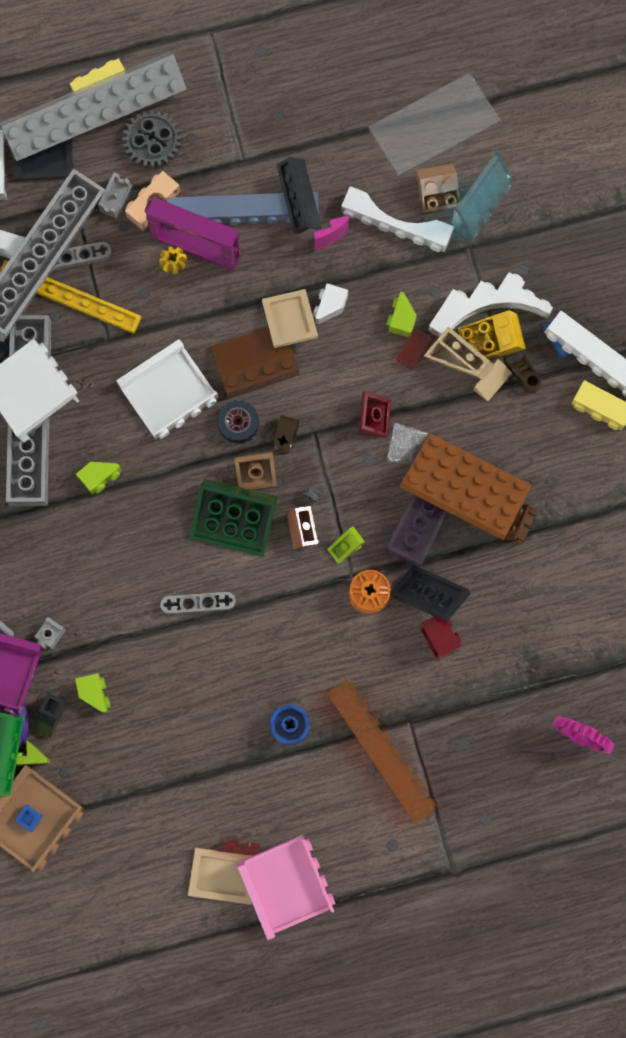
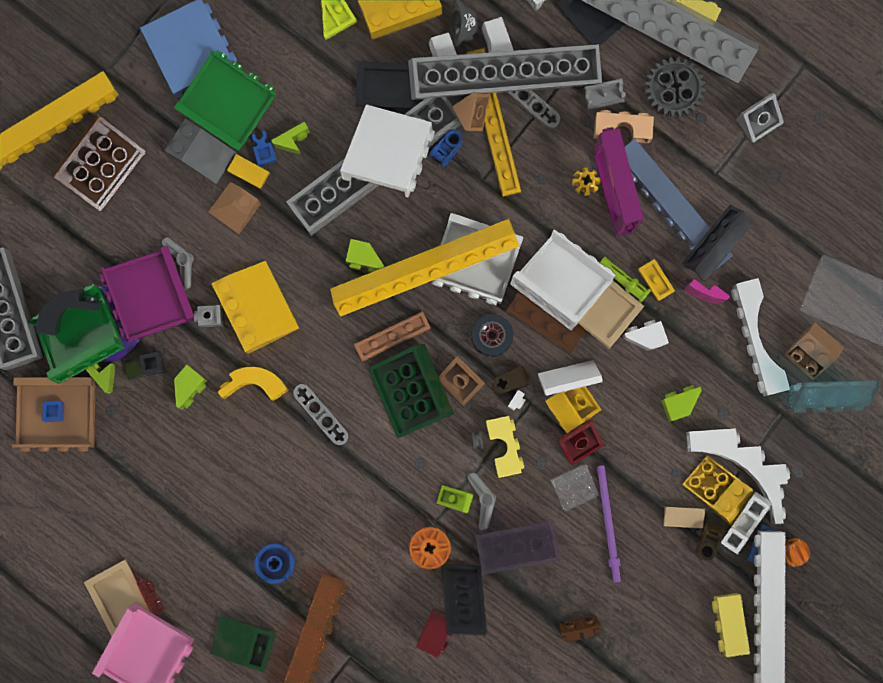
camera: 55 degrees right, 5 degrees up
(48, 303) = (472, 111): none -> medium nougat slope
(61, 349) = (446, 148): none -> blue piece
(70, 591) = (255, 306): none -> yellow slope
(131, 628) = (265, 379): none -> yellow arch
(144, 432) = (424, 267): none -> yellow brick
(178, 501) = (392, 336): none -> nougat tile
(227, 93) = (761, 118): none -> light grey slope
(237, 333) = (563, 280): none -> white panel
(280, 286) = (632, 285): none -> lime pin
(292, 264) = (656, 280): none -> yellow plate
(301, 527) = (442, 453): dark orange brick -> none
(305, 440) = (517, 401): none -> white plate
(317, 385) = (570, 377): none -> white tile
(319, 468) = (502, 429): none -> light yellow arch
(334, 798) = (243, 643): none -> dark green slope
(341, 400) = (573, 407): none -> yellow slope
(365, 521) = (487, 500): none -> light grey piece
(413, 349) = (661, 432): clear red plate -> none
(458, 354) = (683, 475): tan wedge -> none
(466, 486) = (575, 563): dark orange plate -> none
(487, 458) = (614, 561): none -> medium lavender bar
(532, 334) = (746, 522): none -> white arch
(583, 314) = (796, 552): none -> orange piece

